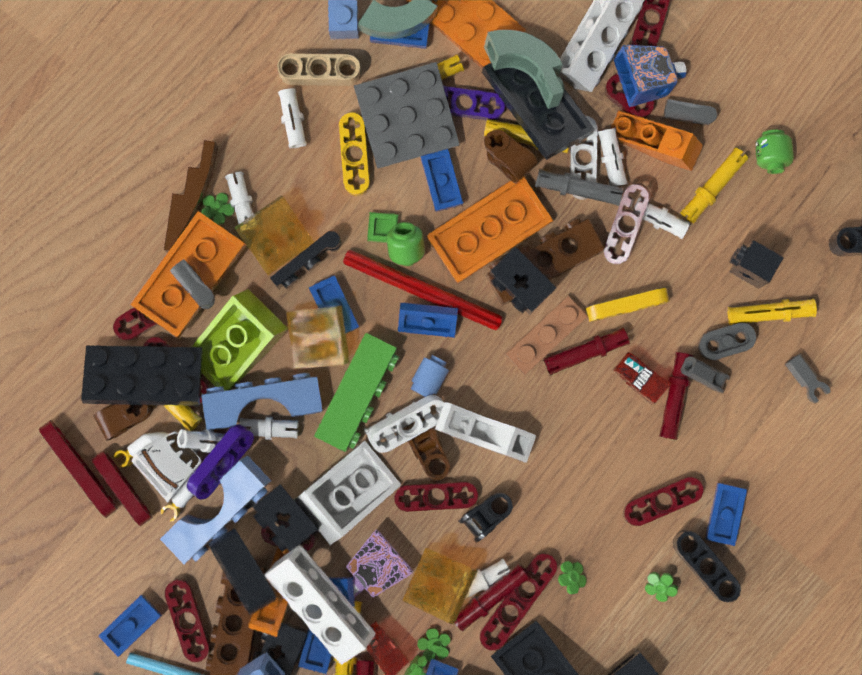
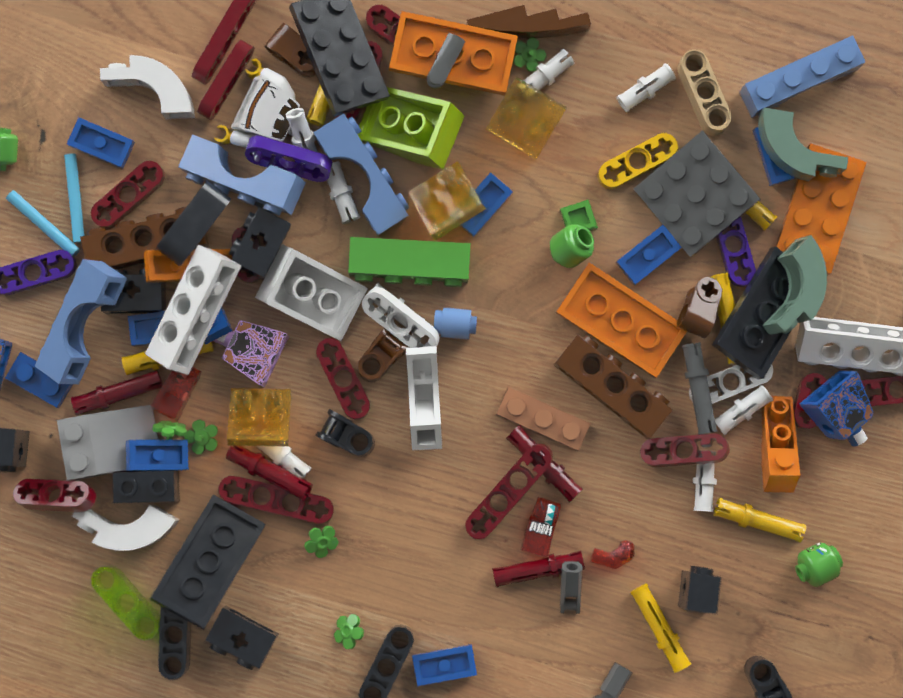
camera: 65 degrees right, 0 degrees up
(112, 541) = (156, 76): none -> white arch
(307, 260) = (517, 159): black plate -> none
(422, 289) = (535, 282): red axle -> none
(427, 320) = (508, 298): blue plate -> none
(518, 266) = (596, 358): black brick -> none
(594, 394) = (510, 492): none -> dark red beam
(627, 304) = (606, 484): yellow beam -> none
(679, 486) = (452, 609): dark red beam -> none
(689, 112) = (820, 464): dark grey bar -> none
(695, 324) = (616, 558): none -> clear red arm
(726, 341) = (612, 596): dark grey plate -> none

